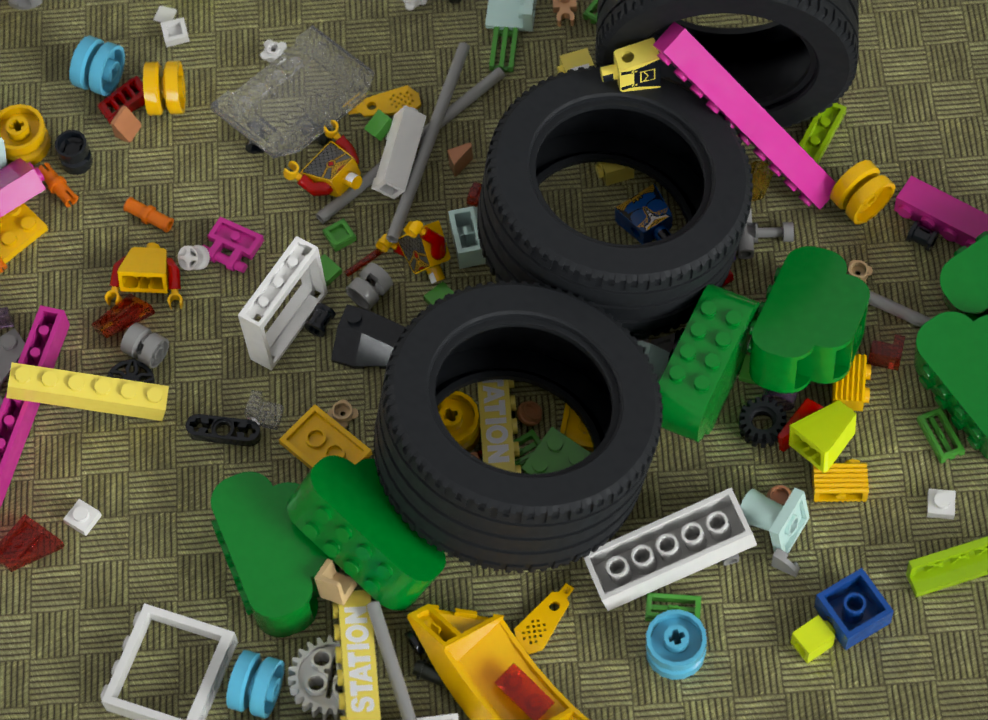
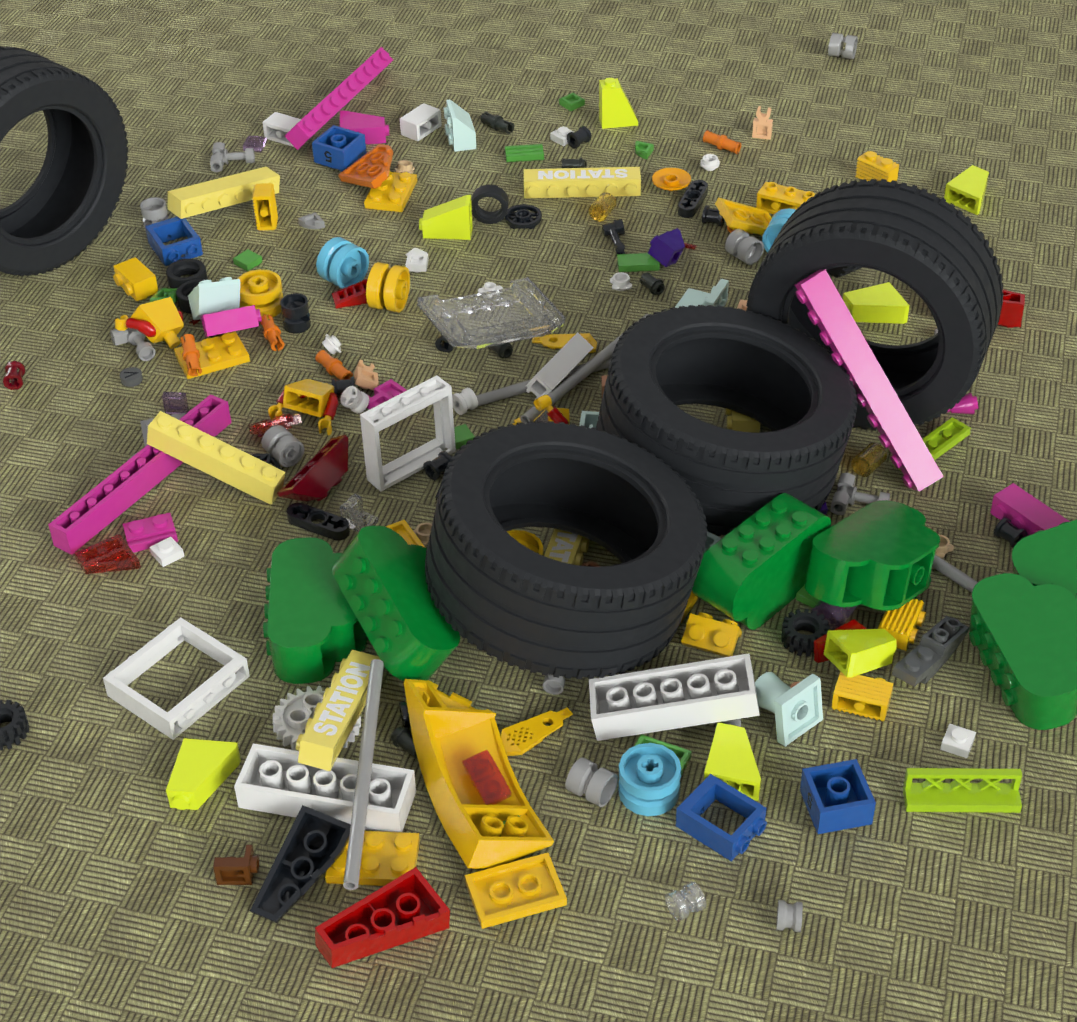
camera: 15 degrees right, 20 degrees down
(52, 498) = (149, 531): none -> dark pink plate
(125, 124) = (346, 307): nougat slope -> none
(133, 183) = (332, 344): none -> white plate
(172, 240) = (341, 385): none -> black bush
(189, 220) = (365, 376): none -> light nougat plate
(198, 371) = (319, 473): none -> dark red wedge
(255, 684) = (243, 701): medium azure wheel -> none
(311, 223) = (464, 401): none -> white wheel
(331, 169) = (496, 369): torso -> none
(334, 585) = (347, 639): tan panel -> none
(339, 235) = (485, 416): bright green tile -> none
(379, 125) = (551, 351): bright green tile -> none
(623, 664) = (593, 782): none -> light grey wheel
(634, 67) = (775, 310): light yellow torso -> none
(676, 455) = (711, 635): none -> yellow bracket
(744, 600) = (733, 760): none -> neon yellow slope
(746, 684) = (711, 789): none -> blue window
(780, 562) = (782, 746): light grey tile -> none
(813, 638) = (788, 813): neon yellow brick -> none
(862, 192) = (962, 483): yellow wheel -> none
(887, 354) = (938, 610): clear red panel -> none
(888, 410) = (932, 653): none -> dark grey slope
(950, 454) = (979, 702): bright green tile -> none

